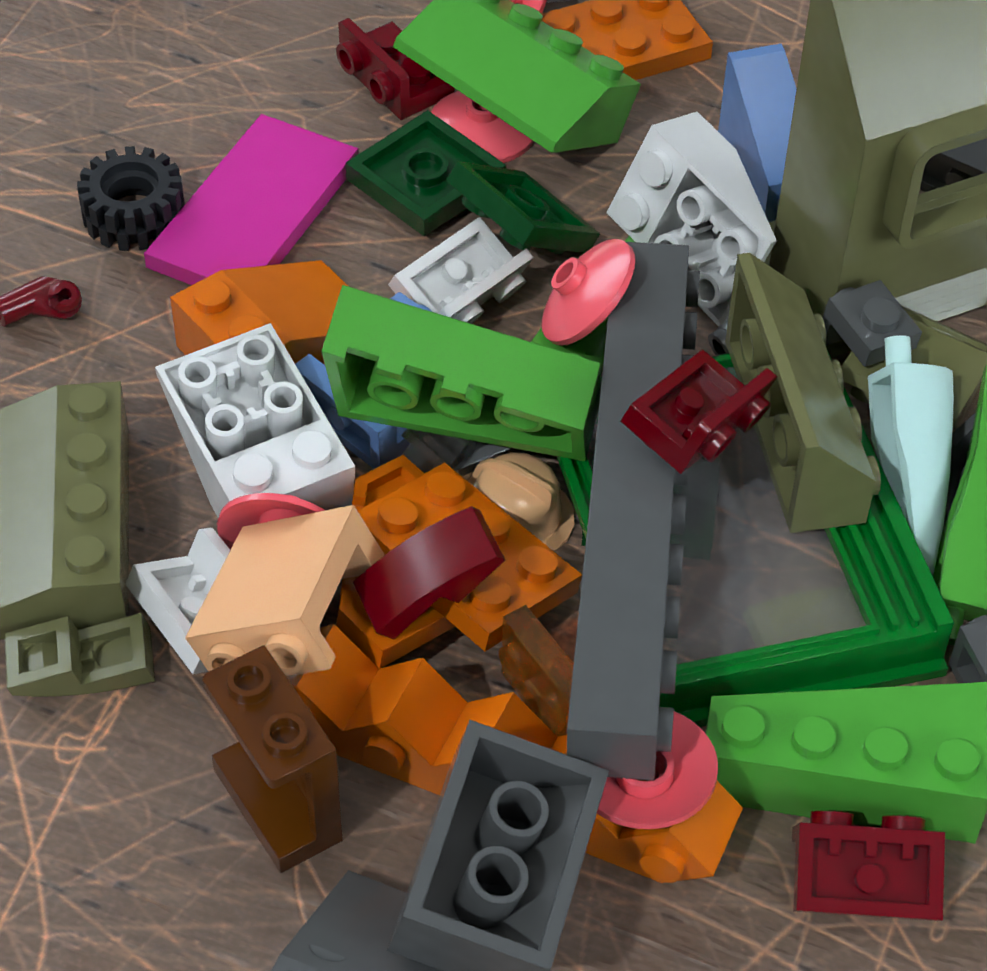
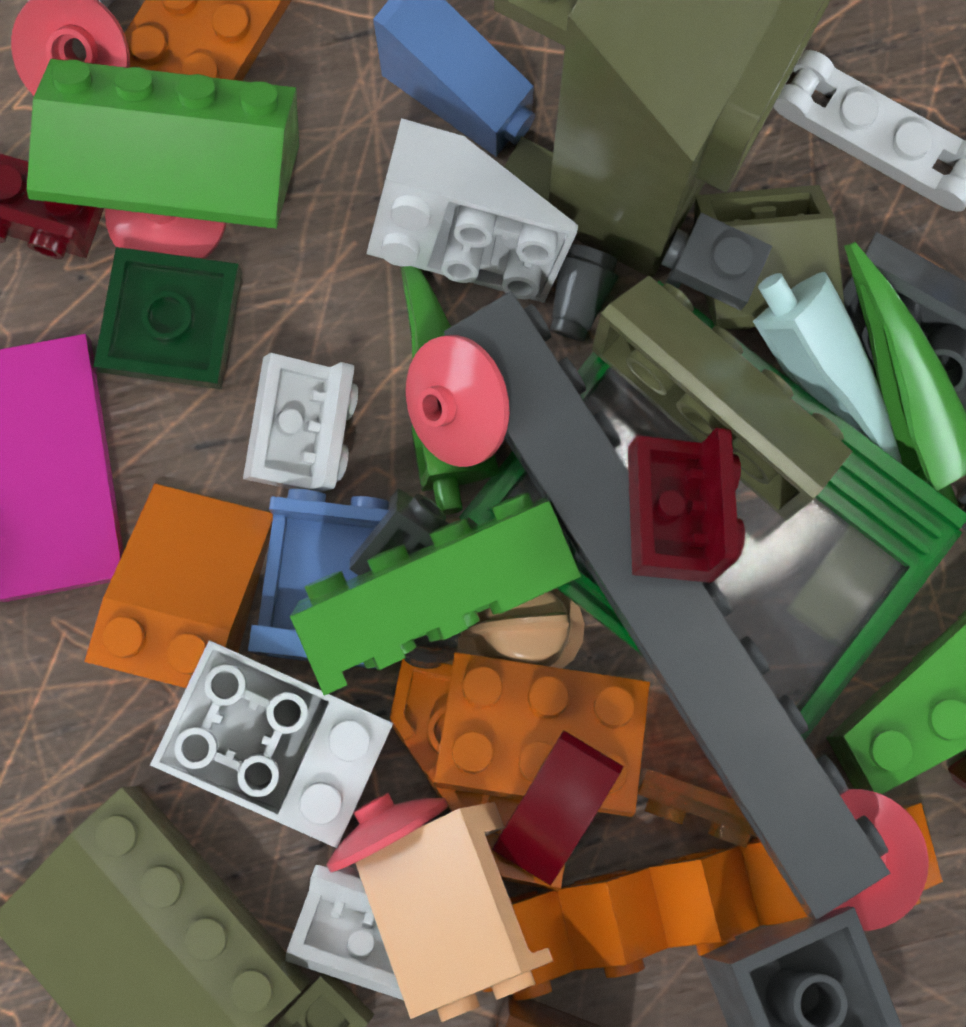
camera: 35 degrees left, 30 degrees up
(521, 208) = (297, 311): dark green plate -> none

